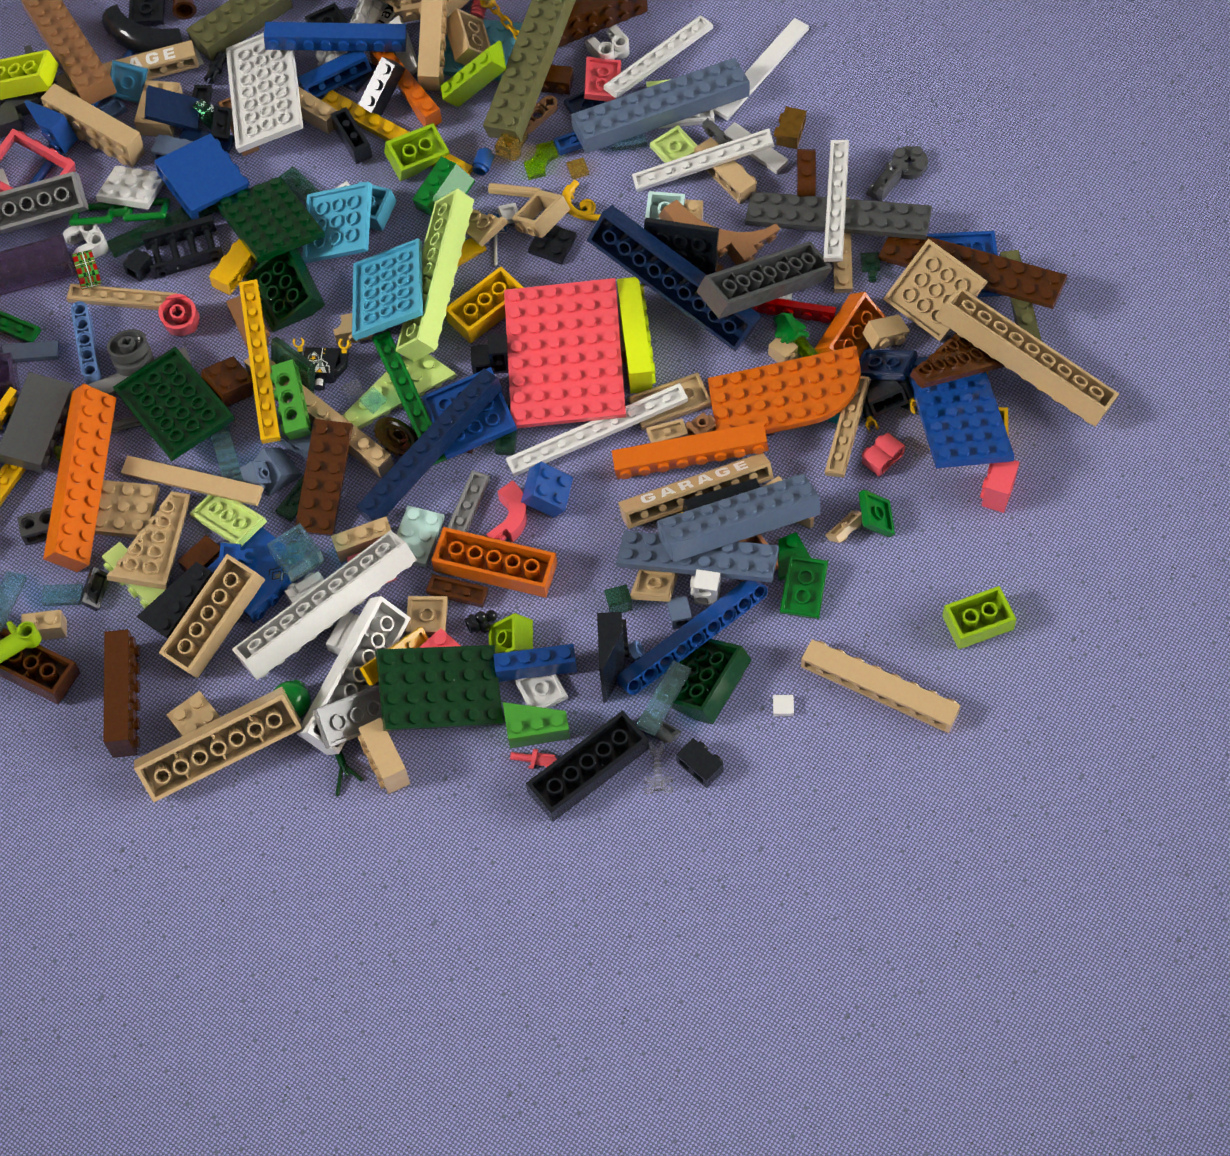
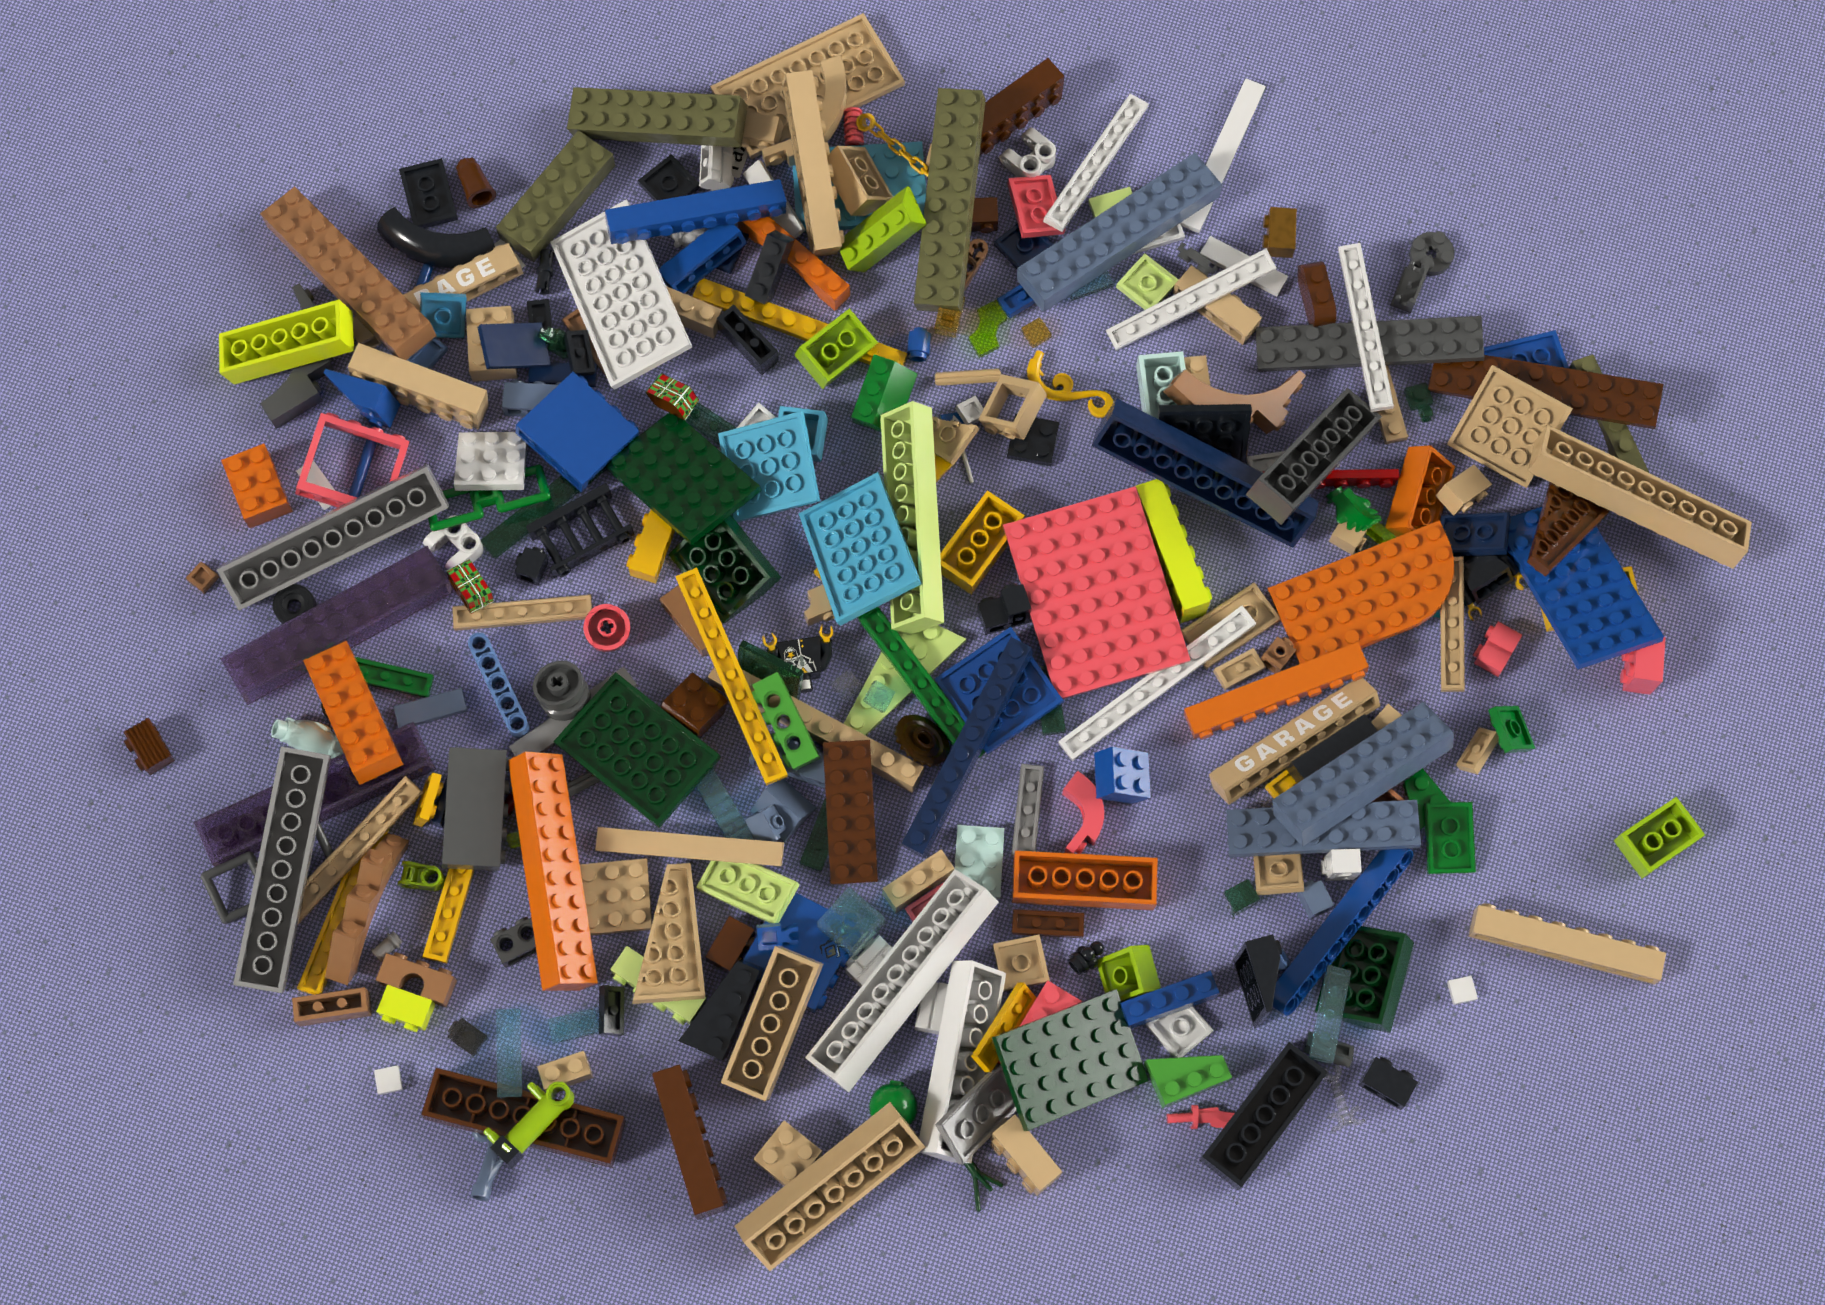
camera: 20 degrees left, 10 degrees up
(281, 164) = (672, 396): none -> piece

